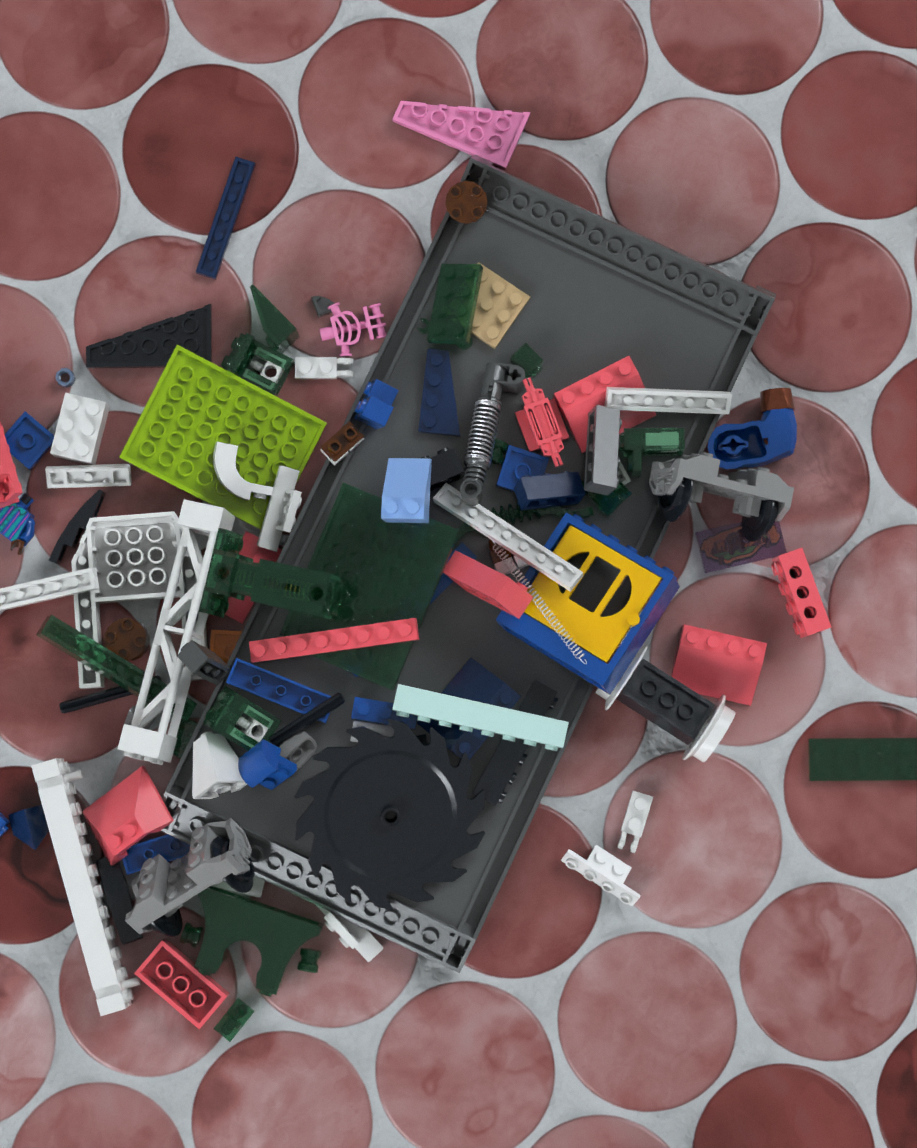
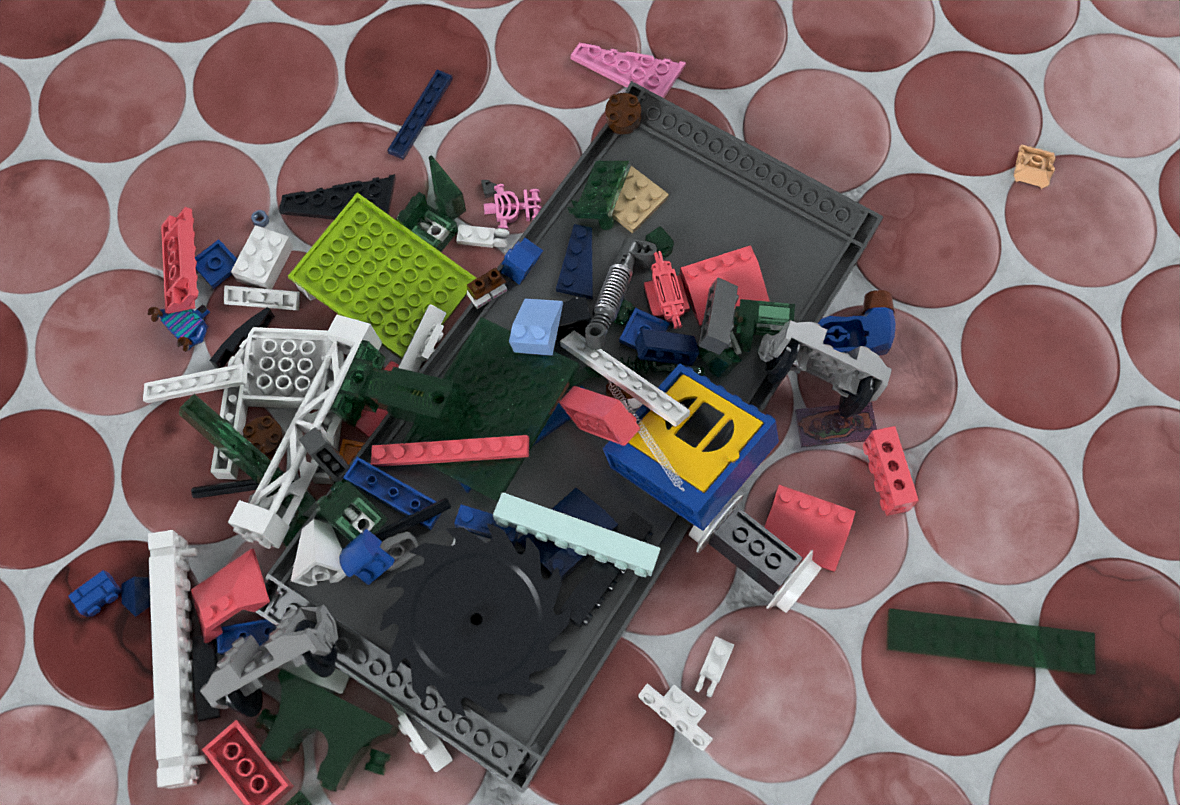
camera: 10 degrees right, 15 degrees down
(225, 468) = (382, 307): white arch -> none
(668, 400) = (782, 286): white plate -> none

